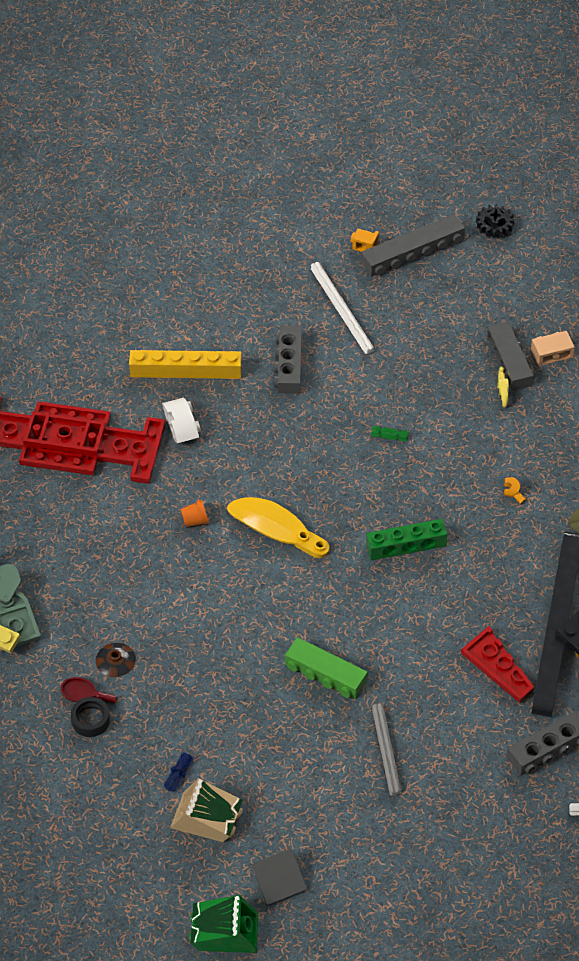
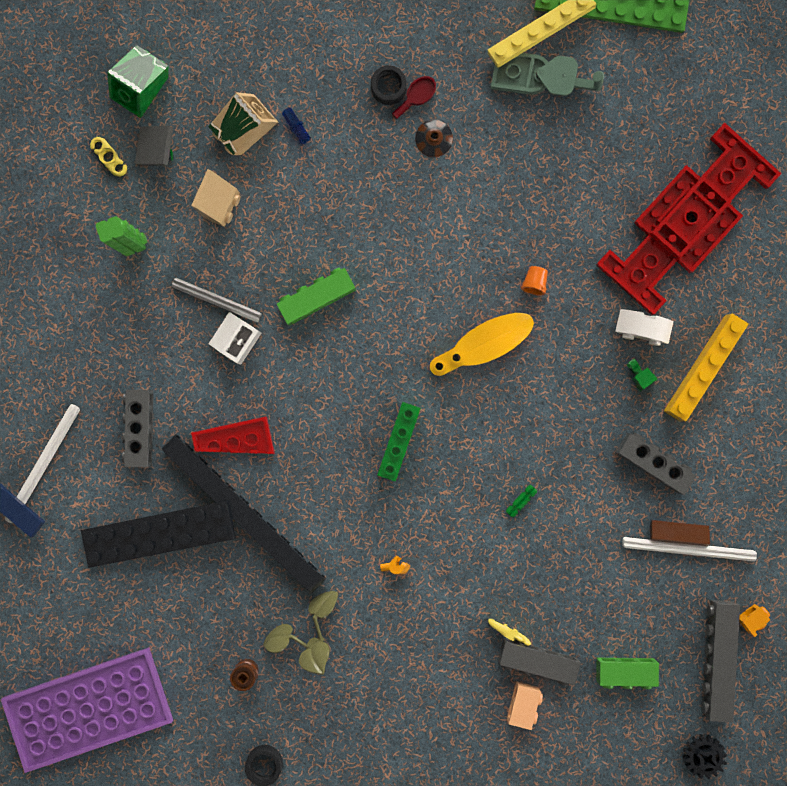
camera: 125 degrees right, 35 degrees up
(223, 401) = (642, 378): none -> green piece
(295, 790) = (216, 199): none -> tan slope
(316, 926) = (111, 164): none -> light yellow piece
(333, 318) = (679, 533): none -> reddish brown tile
(384, 830) = (121, 236): none -> bright green brick
(410, 709) = (235, 338): none -> white slope
(471, 297) = (627, 672): none -> bright green brick

